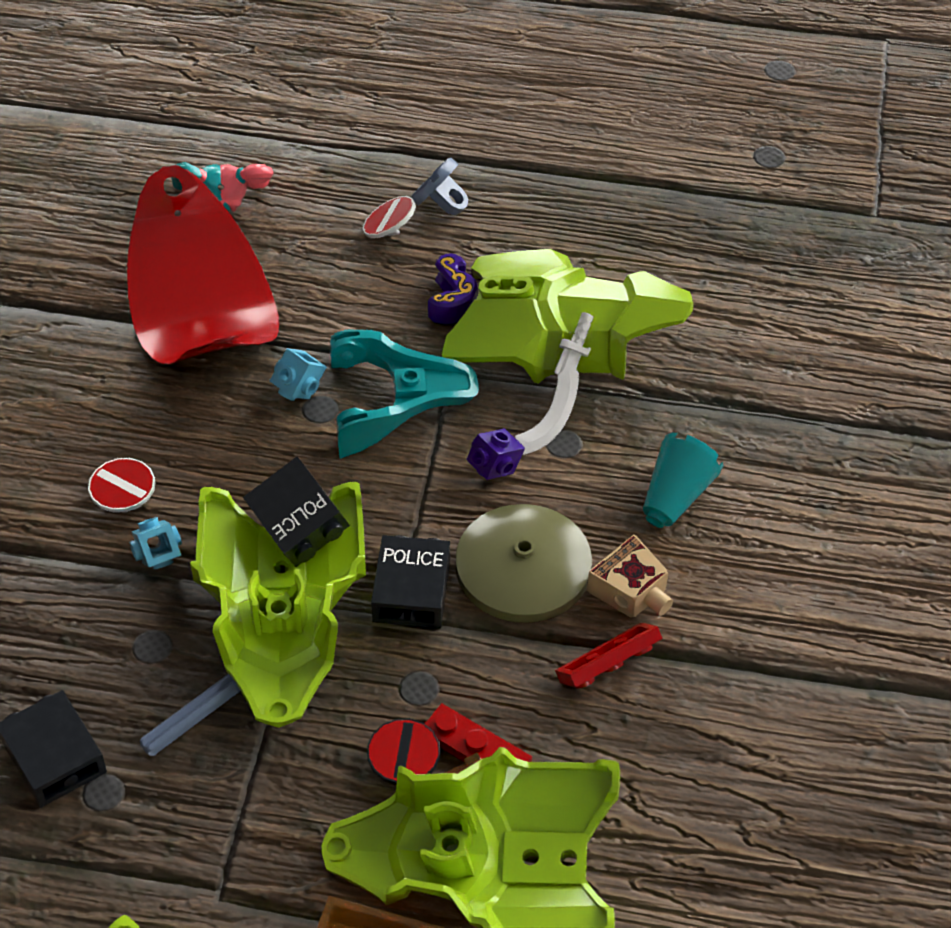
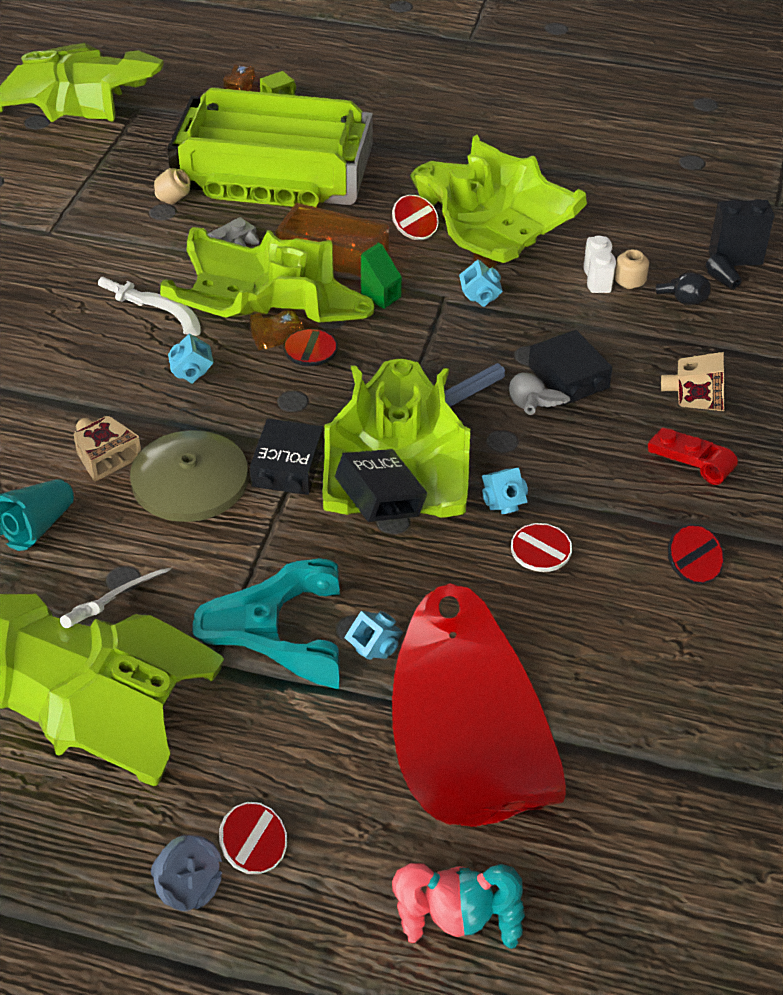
camera: 175 degrees left, 5 degrees down
(111, 707) = (529, 392): none -> light grey piece
(162, 886) = (481, 283): none -> medium azure brick
(313, 880) = (379, 277): none -> green slope
(458, 290) = (186, 733): dark purple animal -> none
(464, 737) = (256, 358): red plate -> none
(495, 453) = (193, 545): dark purple brick -> none
(558, 707) = (190, 358): none -> medium azure brick
(609, 655) = (141, 396): red plate -> none
(657, 850) = (184, 314): none -> white sword

